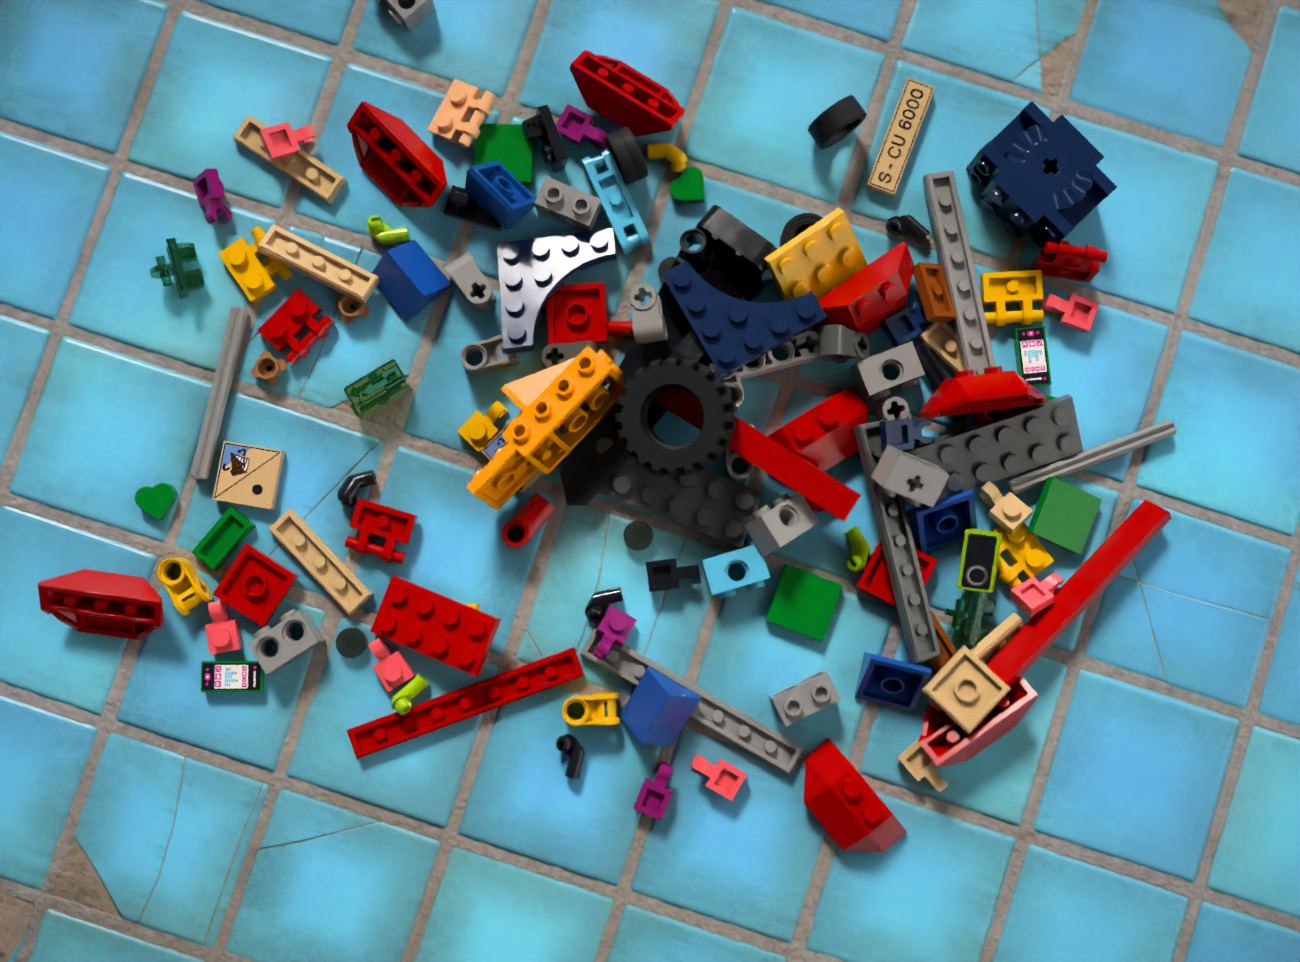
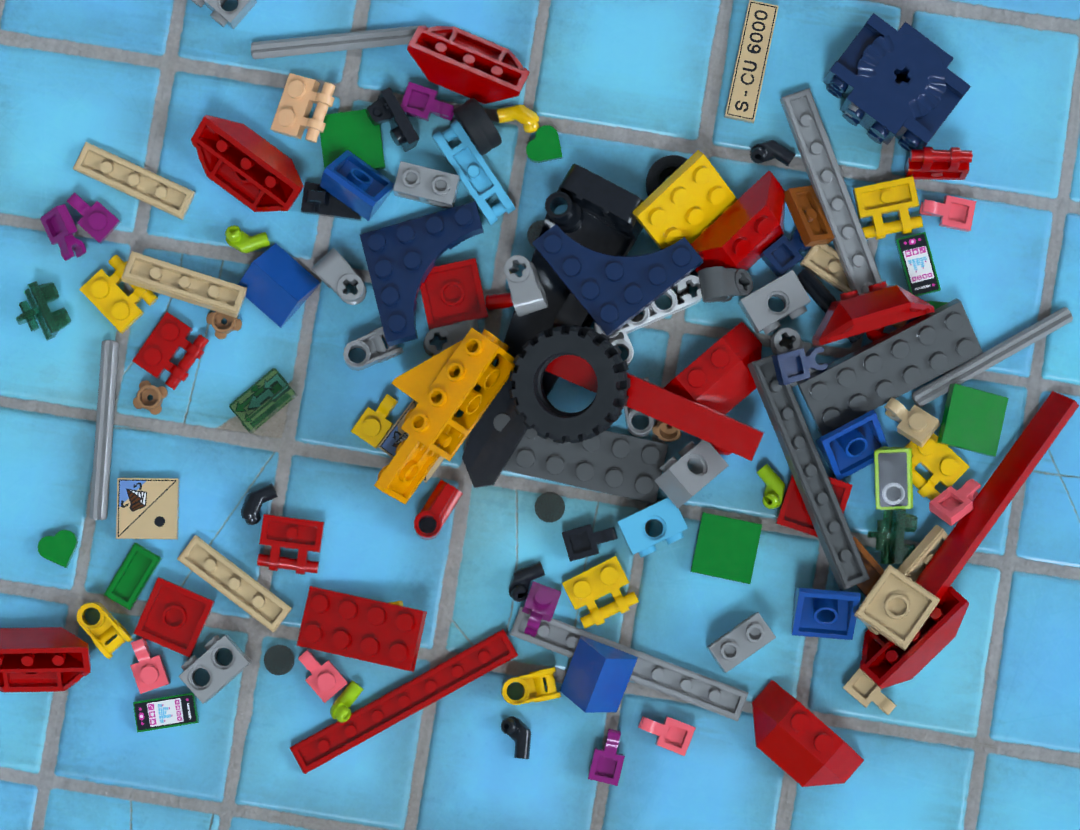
camera: 10 degrees left, 0 degrees up
(245, 189) = (95, 219): none -> magenta plate
(282, 141) = (129, 165): coral plate -> none
(497, 57) = (333, 42): none -> light grey axle
(670, 617) = (596, 583): none -> yellow plate
(763, 481) = (665, 432): none -> medium nougat plate
(837, 122) = (684, 59): black tyre -> none
(909, 476) = (809, 406): light grey brick -> none

